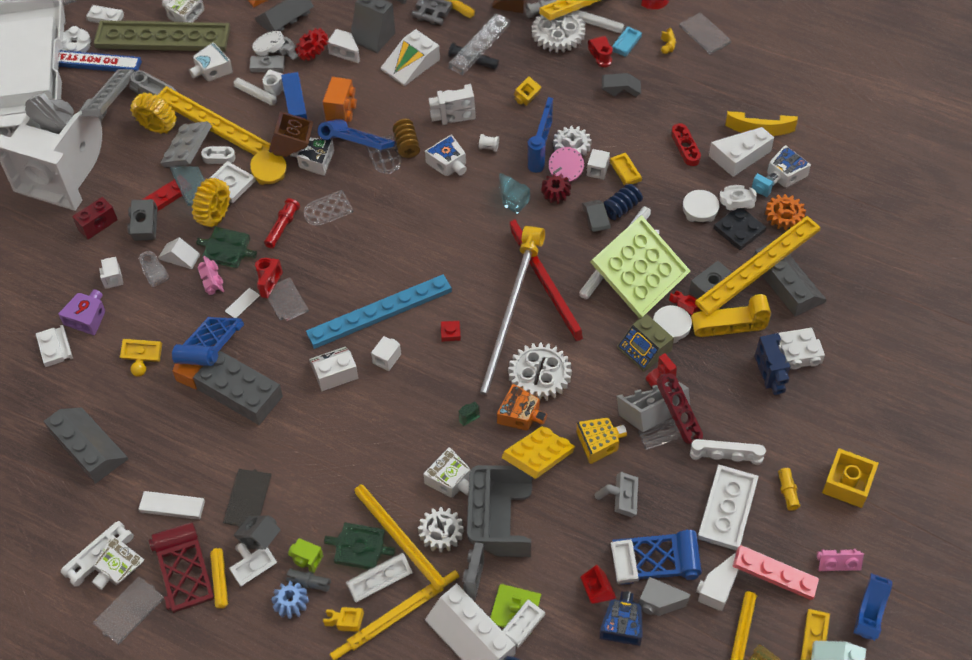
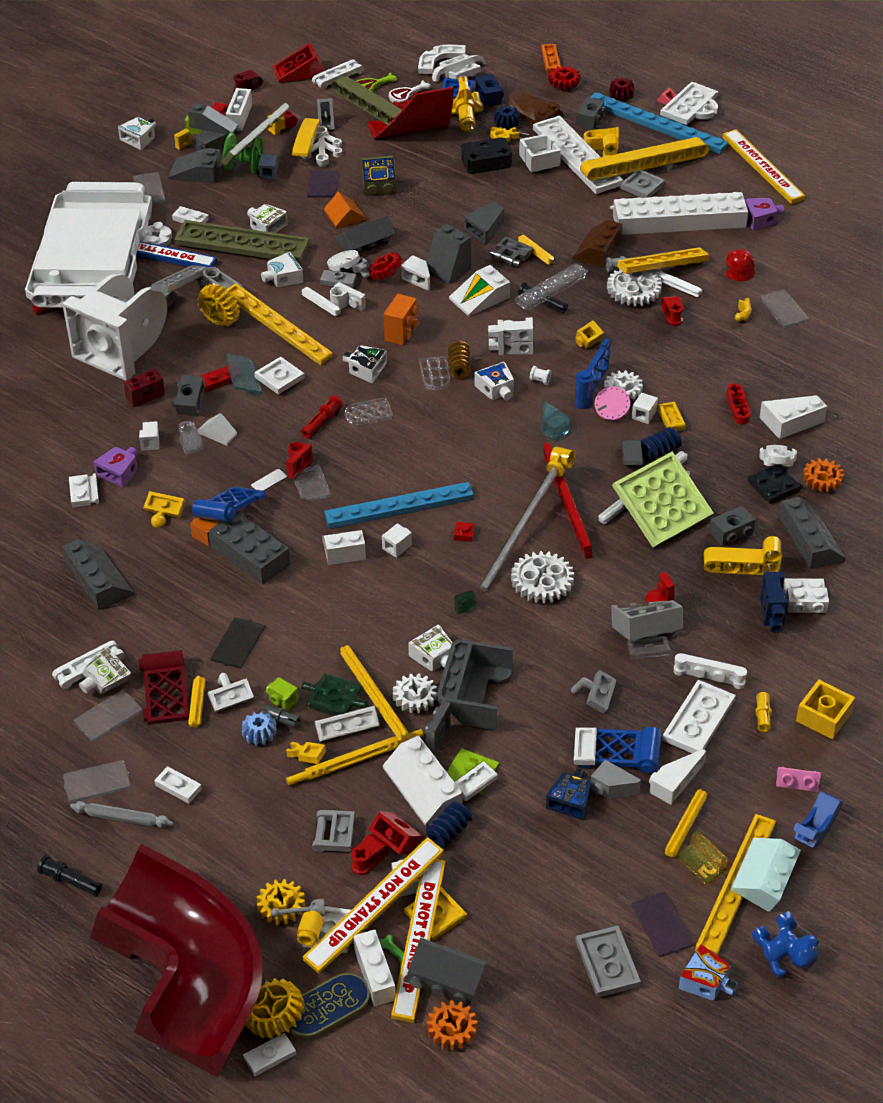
camera: 10 degrees right, 10 degrees down
(49, 113) = (120, 282): light grey hair -> none
(171, 505) = (165, 636): white tile -> none
(186, 144) = (244, 336): light grey plate -> none
(209, 270) = (242, 452): bright pink hinge -> none
(211, 202) = (257, 387): yellow gear -> none
(218, 155) = (273, 351): white beam -> none
(226, 247) = (264, 430): clear green plate -> none
(257, 532) = (241, 665): dark grey brick -> none
(268, 167) = (319, 367): yellow tile -> none
(290, 134) = (345, 339): reddish brown slope -> none
(294, 94) = (357, 311): blue slope -> none
(340, 129) = (396, 343): blue piece -> none
(520, 409) = (515, 606): torso -> none
(538, 452) = (523, 639): yellow plate -> none
(556, 188) = (597, 423): dark red gear -> none
(597, 585) = (554, 760): red slope -> none
(599, 438) = (587, 640): yellow torso -> none
(617, 82) = (680, 339): dark grey slope -> none
(626, 41) = (701, 305): medium azure tile -> none
(645, 342) = (651, 562): slope -> none
(674, 321) = (683, 555): white tile -> none
(677, 411) = (673, 622): dark red beam -> none
(684, 302) = (702, 540): red plate -> none
(700, 206) = (739, 459): white tile -> none
(739, 123) = (841, 400): yellow slope -> none
(757, 266) = (779, 513): yellow tile -> none
(762, 185) = (806, 448): medium azure plate -> none
(775, 572) = (730, 776): coral plate -> none
(787, 167) = (835, 437): torso -> none

